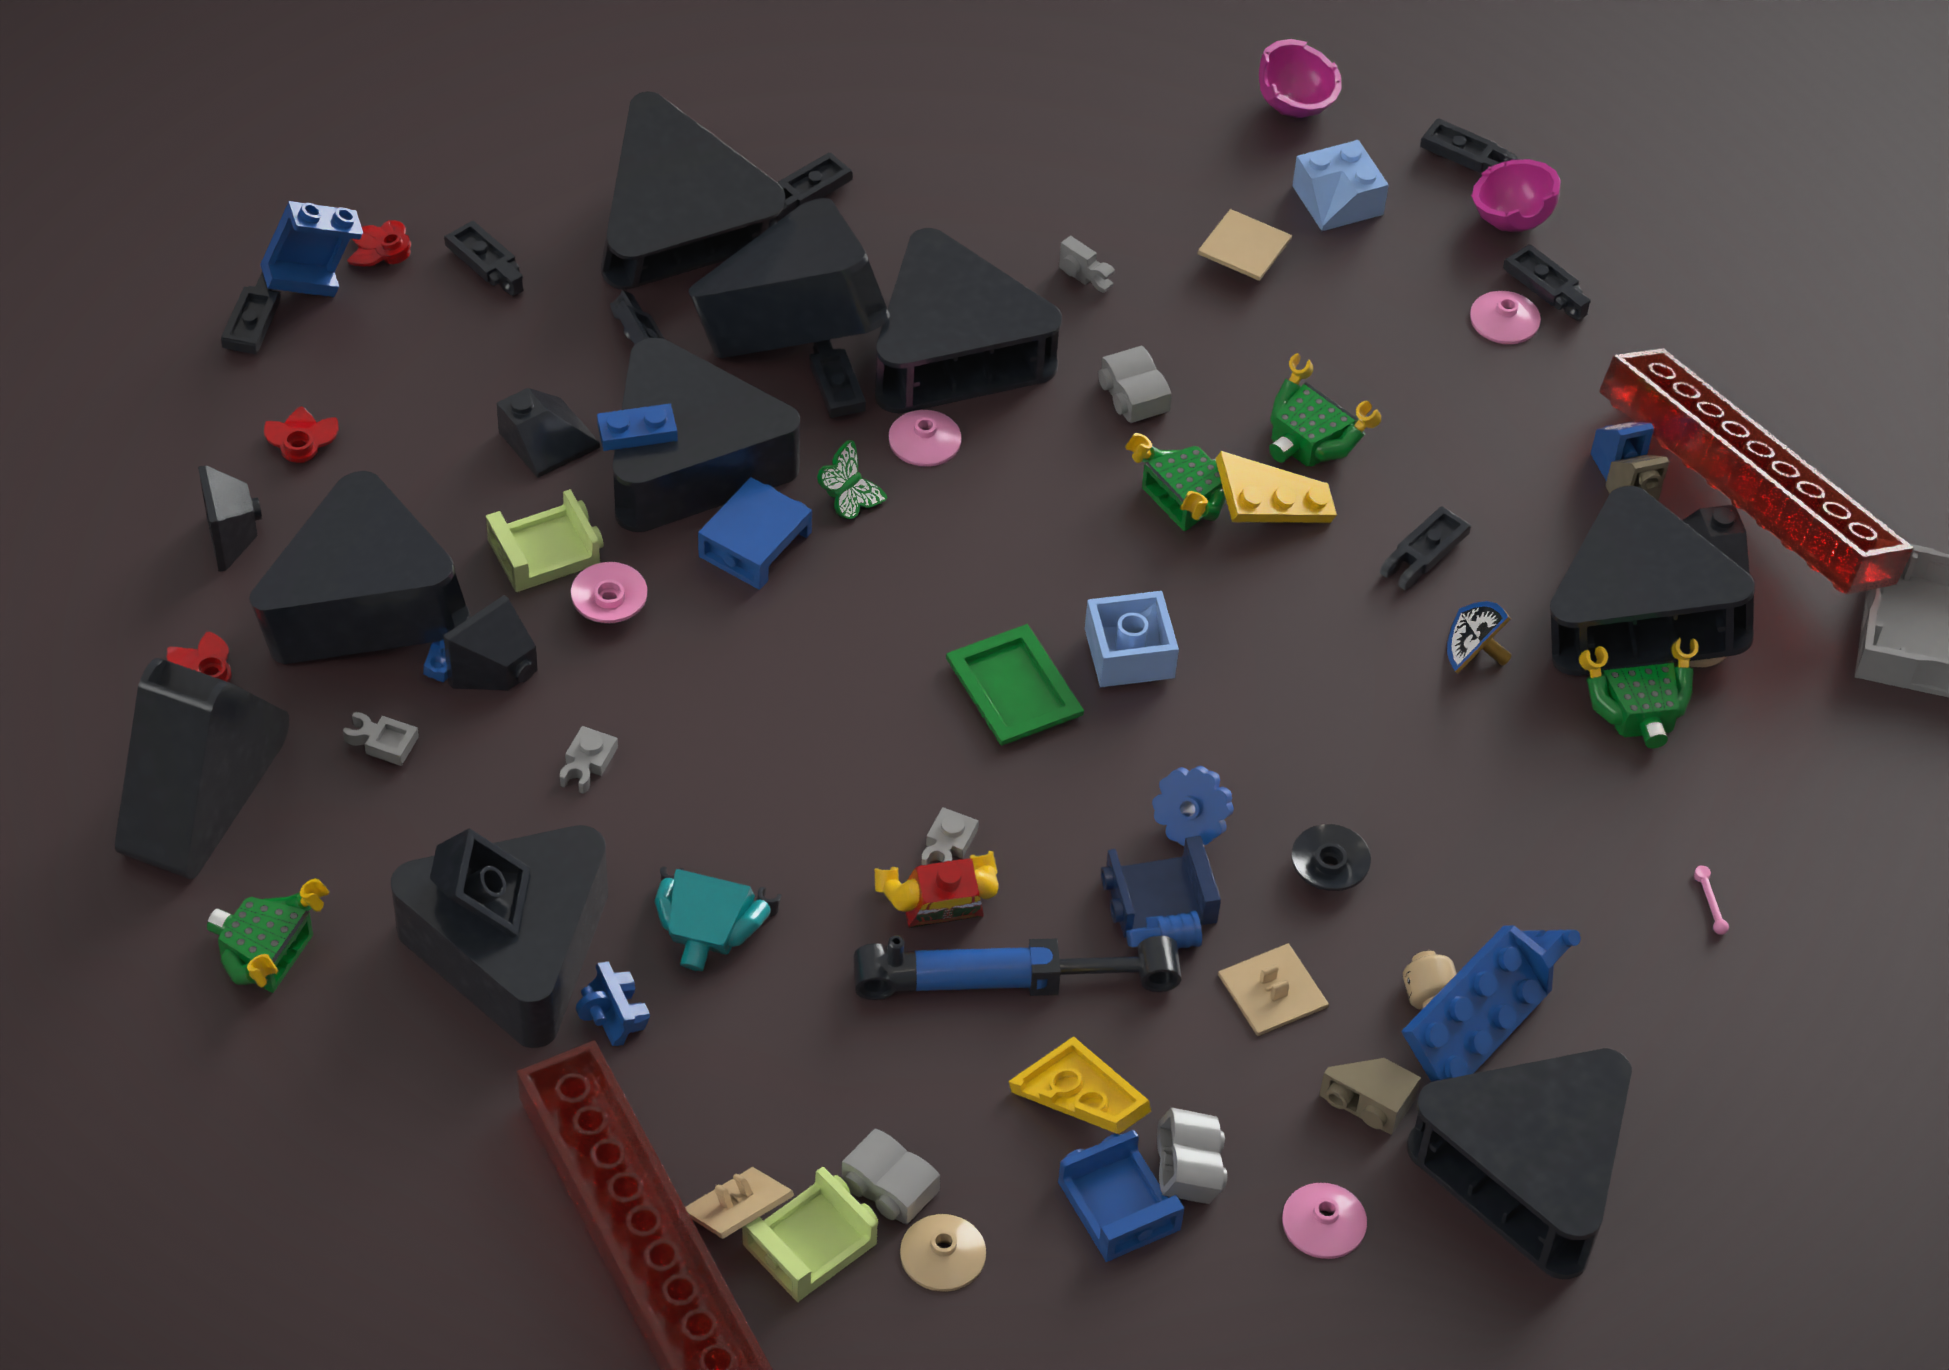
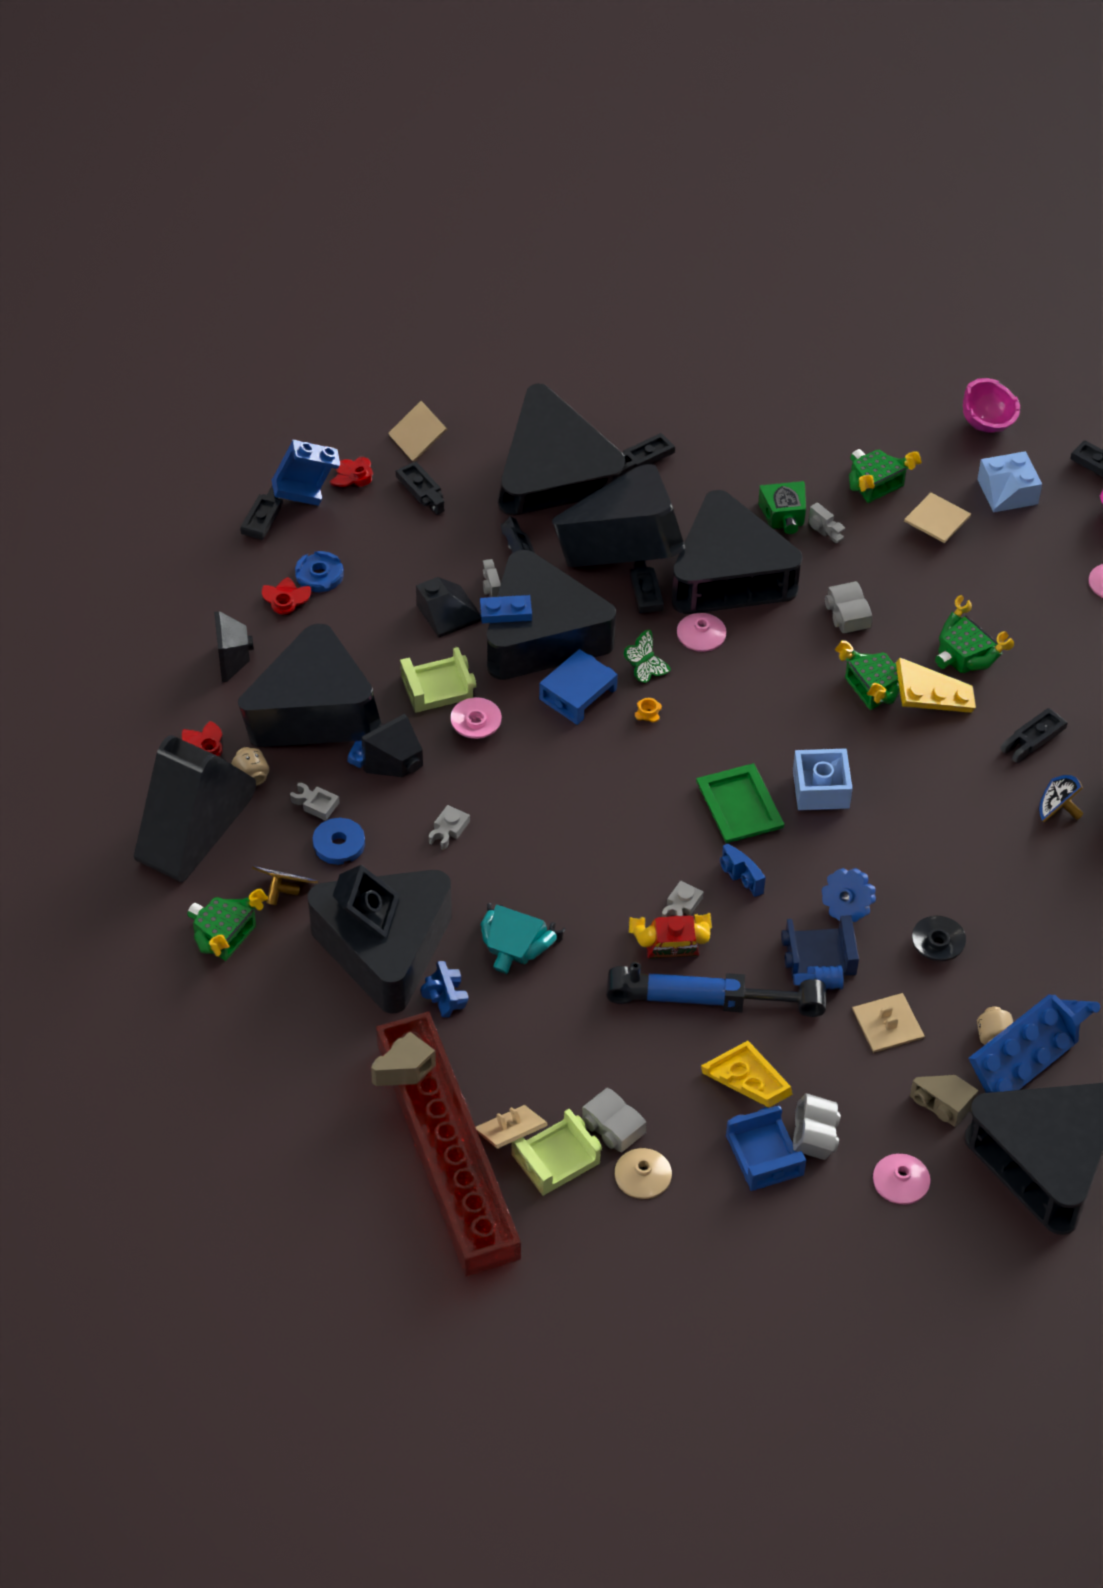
camera: 10 degrees right, 0 degrees up
(281, 689) = (252, 763): none -> tan head
(341, 871) = (278, 886): none -> pearl gold shield
(348, 410) = (319, 582): none -> blue tile
(424, 776) = (335, 829): none -> blue tile
(470, 176) = (417, 431): none -> tan piece
(568, 1123) = (404, 1063): none -> dark tan slope
(608, 393) = (492, 583): none -> light grey plate
(862, 559) = (648, 710): none -> light orange plate
(1021, 243) = (783, 505): none -> green torso
(1028, 778) = (742, 867): none -> blue slope
(1151, 187) = (879, 473): none -> green torso

